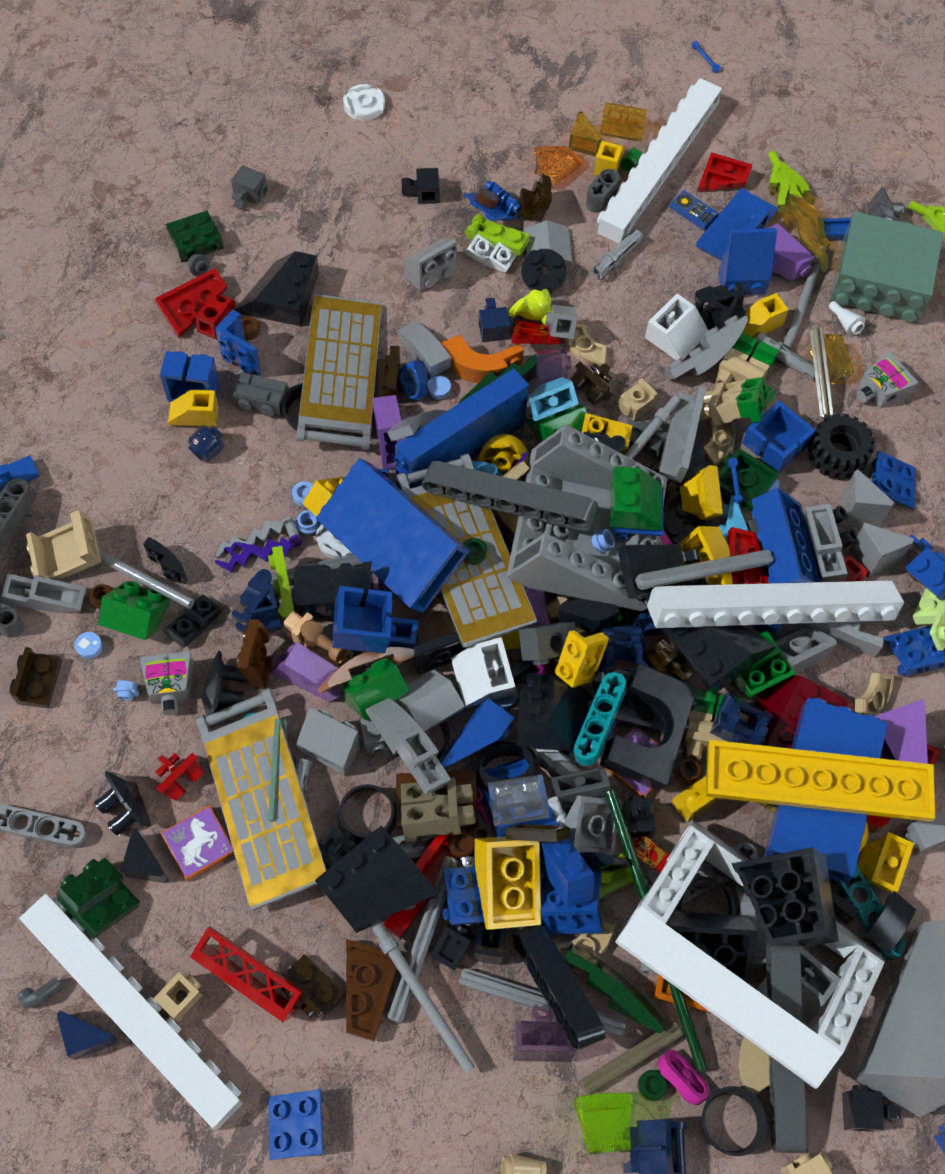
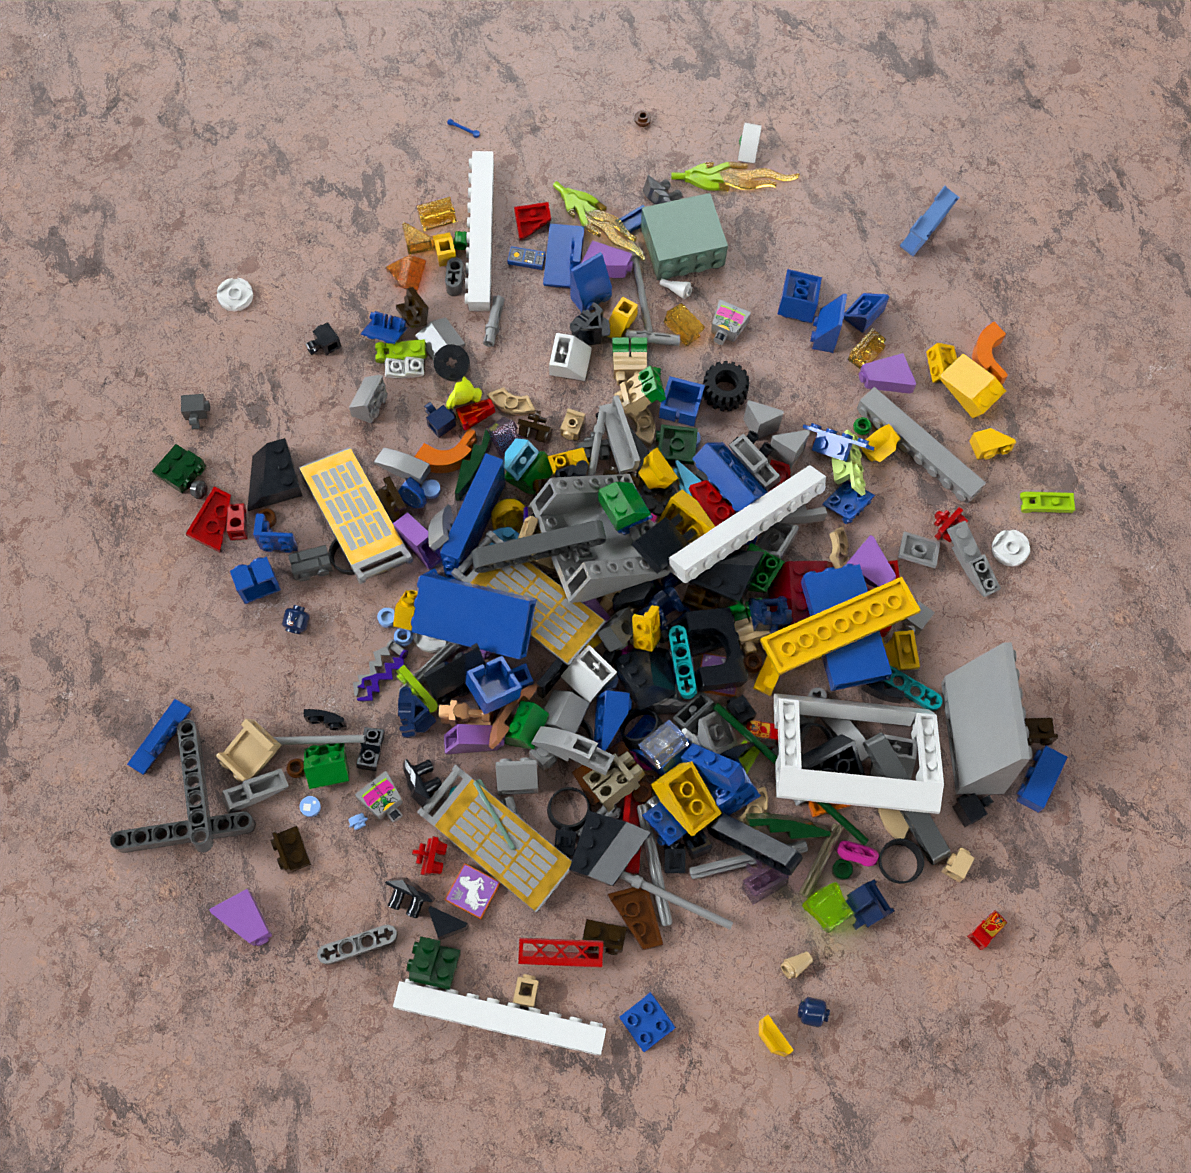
camera: 30 degrees left, 5 degrees up
(30, 999) = (438, 1044): dark grey arm -> none
(82, 1038) = (481, 1052): dark blue slope -> none
(194, 409) = (270, 600): yellow slope -> none
(253, 657) = (433, 752): reddish brown plate -> none
(477, 551) = (539, 594): dark green tile -> none
(487, 198) = (379, 327): reddish brown tile -> none
(537, 832) = (689, 758): dark brown tile -> none
(561, 321) = (489, 395): light grey brick -> none
(603, 540) = (615, 542): light blue plate -> none
(703, 569) = (692, 526): light grey axle -> none
(715, 346) = (603, 356): light grey slope -> none
(732, 463) = (663, 437): blue hinge -> none
(791, 897) = (863, 708): black wedge -> none
(821, 372) = (683, 338): dark tan axle -> none
(891, 922) = (926, 687): black slope -> none
(894, 479) = (771, 390): blue hinge -> none
(911, 134) = (642, 122): none -> reddish brown plate

